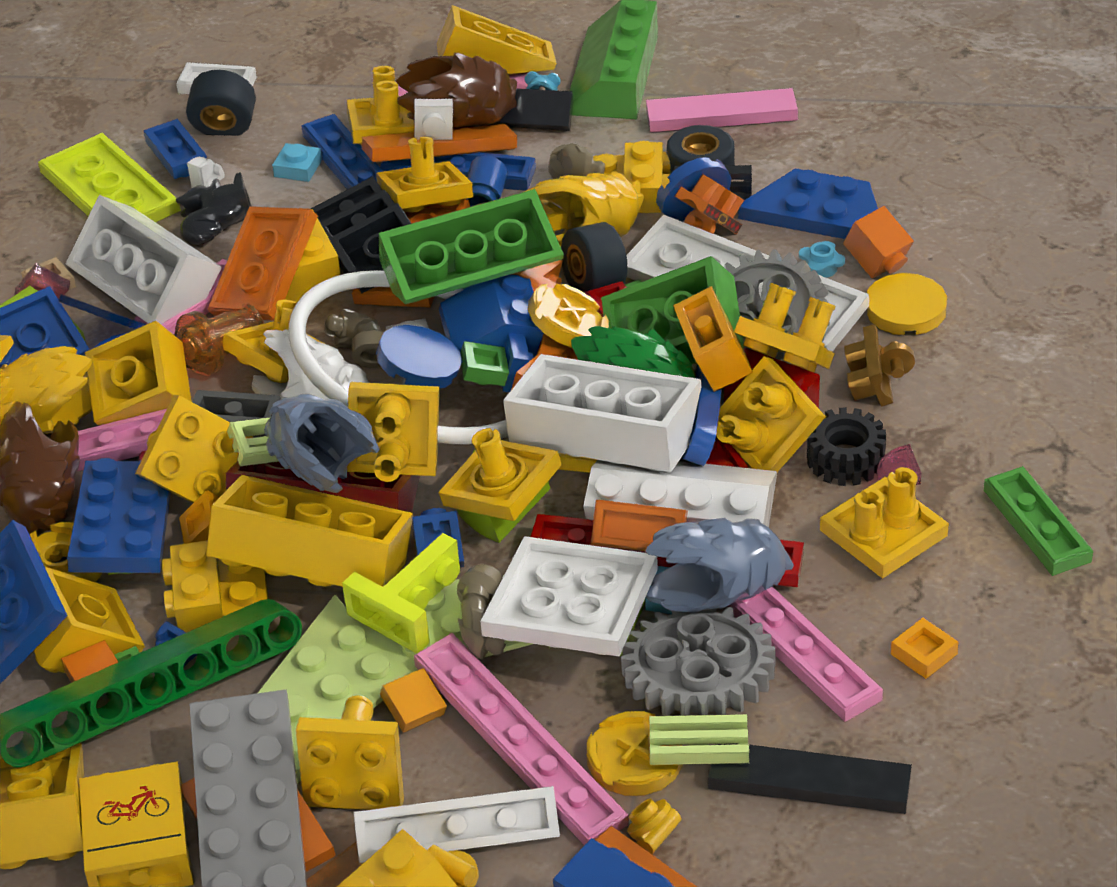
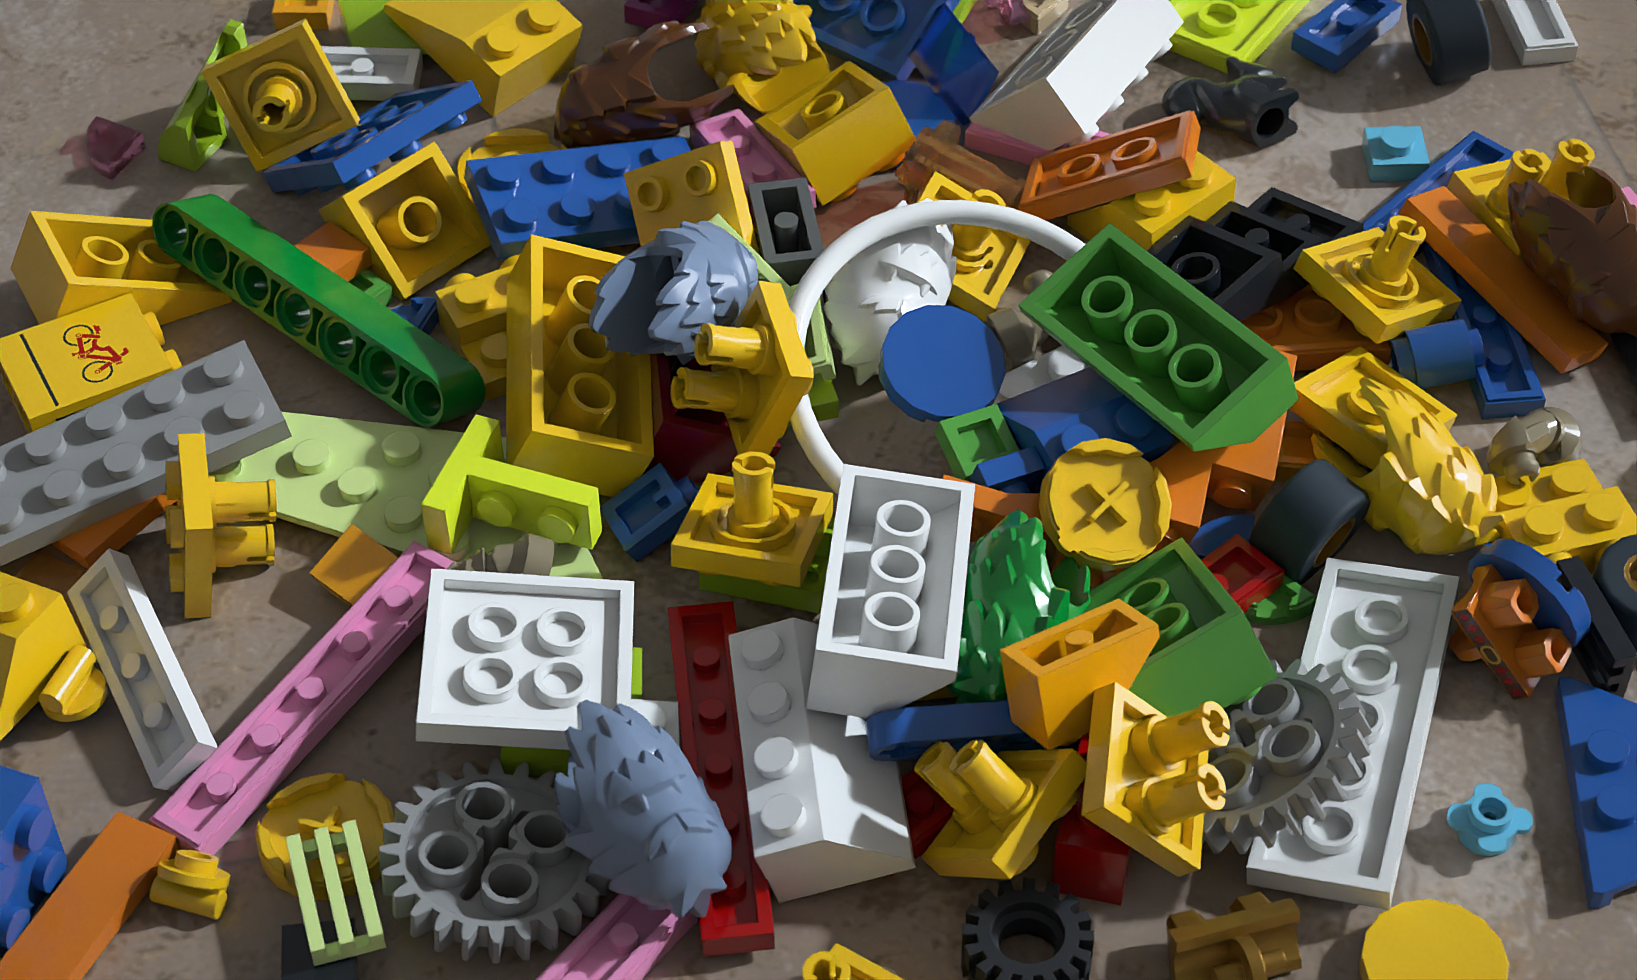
camera: 70 degrees right, 5 degrees up
(204, 171) = (1309, 68): white tile -> none
(433, 118) = (1505, 240): white plate -> none
(631, 524) = (710, 709): orange tile -> none
(878, 243) = (1543, 883): orange brick -> none

